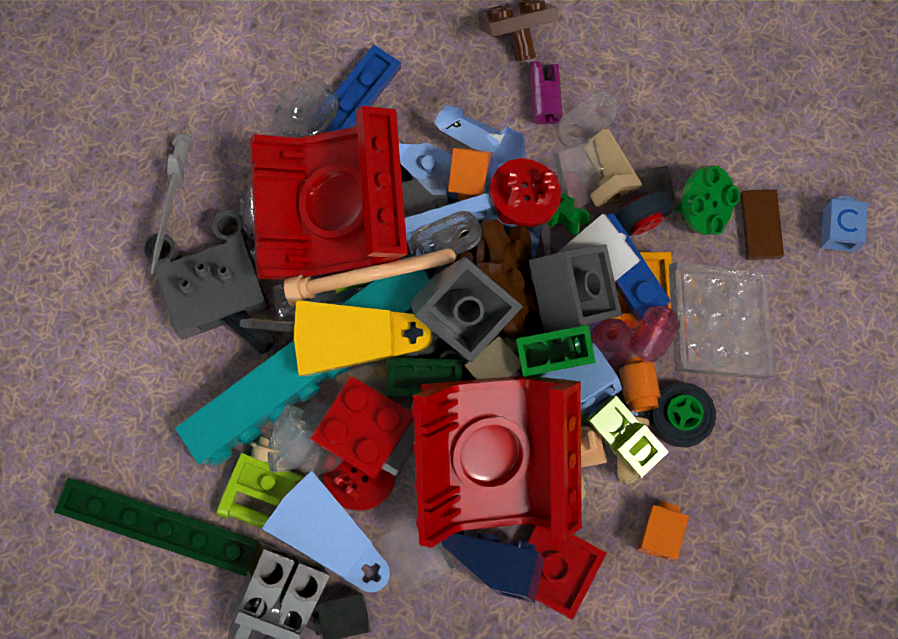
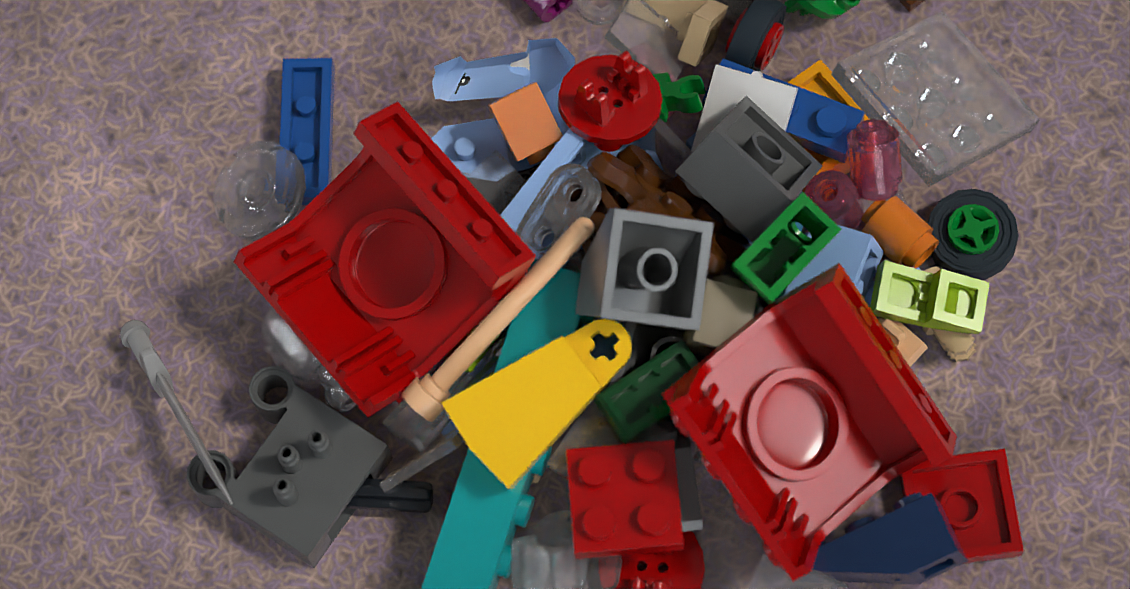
camera: 30 degrees left, 5 degrees down
(663, 531) = (1049, 380): orange brick -> none

